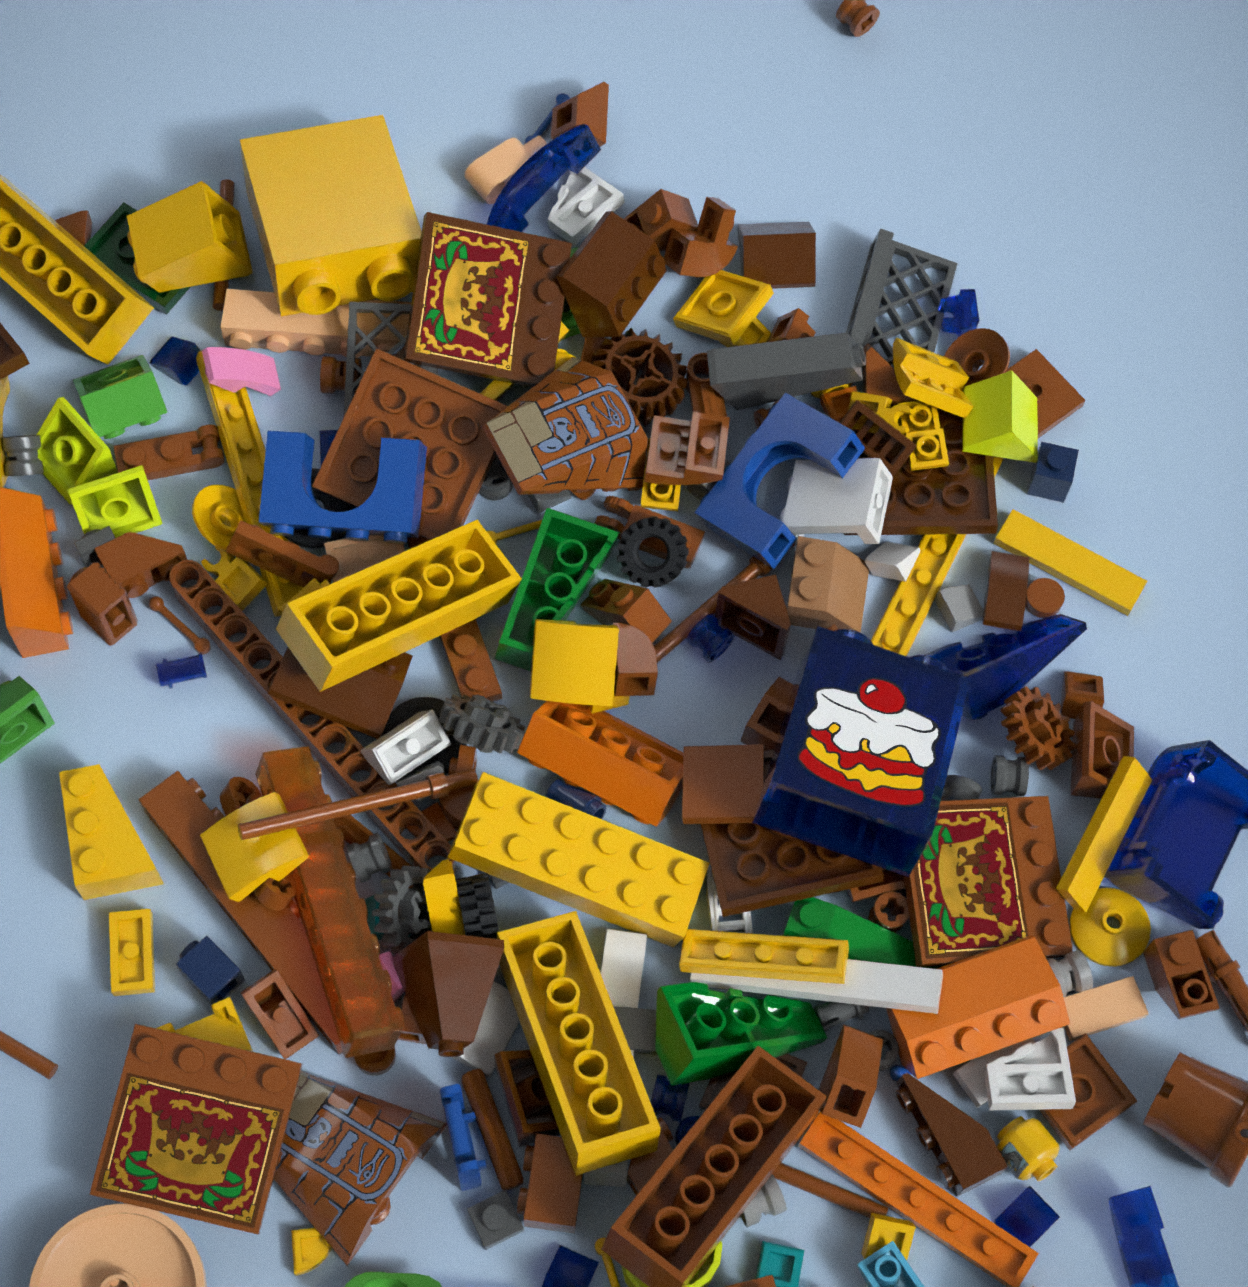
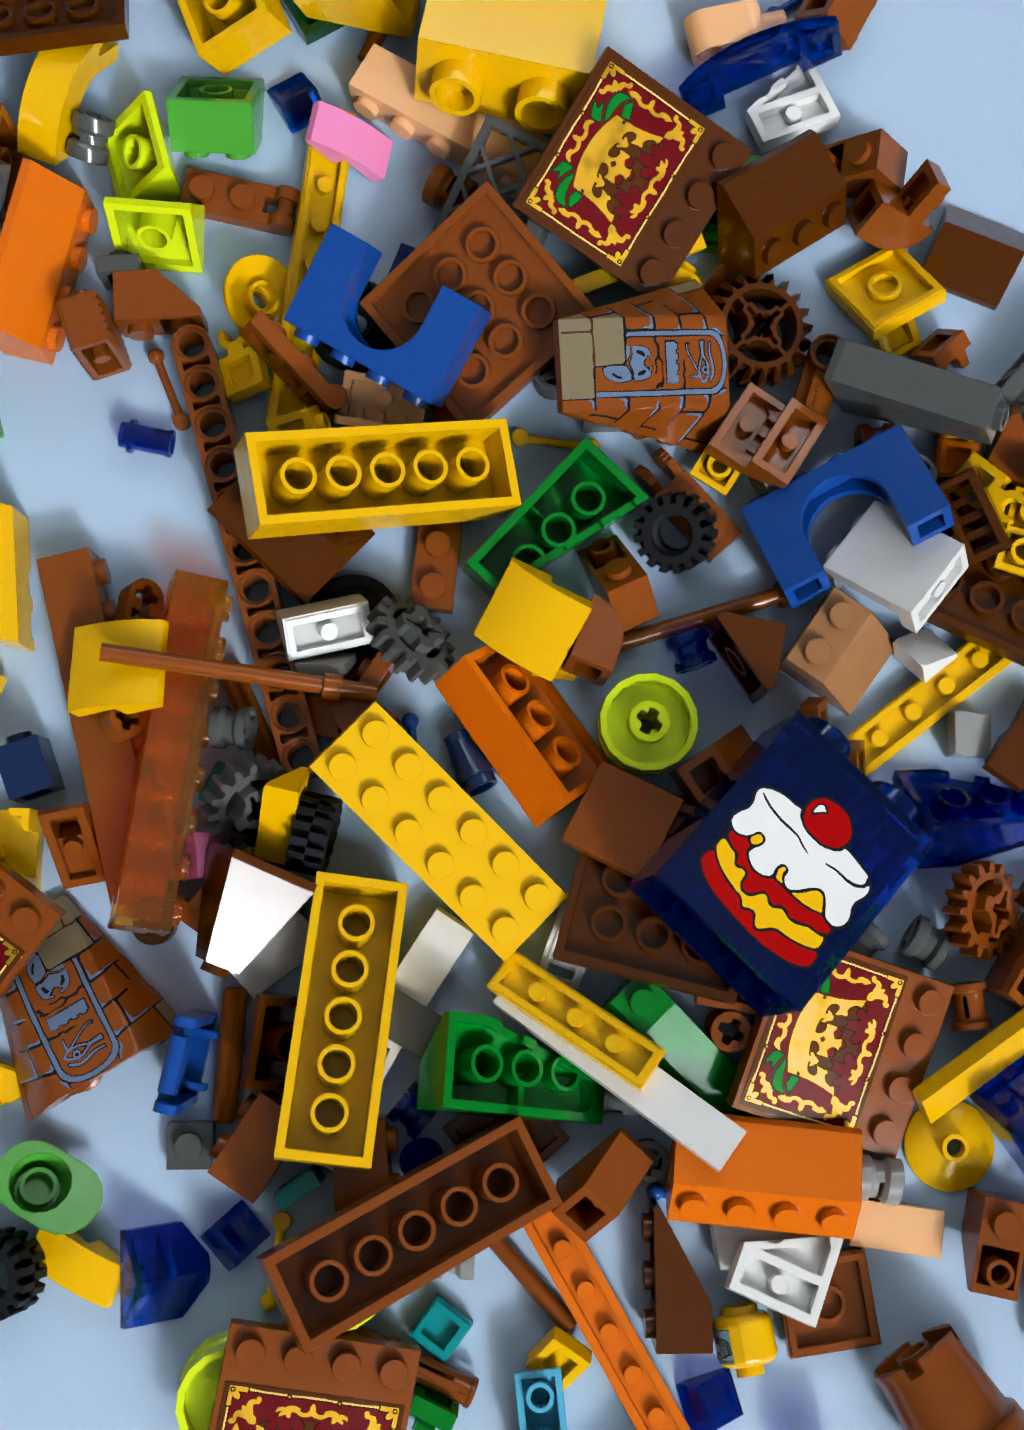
camera: 25 degrees right, 15 degrees up
(604, 1205) = (299, 1186): none -> teal tile
(704, 705) = (664, 706): none -> neon yellow wheel
(1078, 815) = (969, 1006): none -> dark orange bush

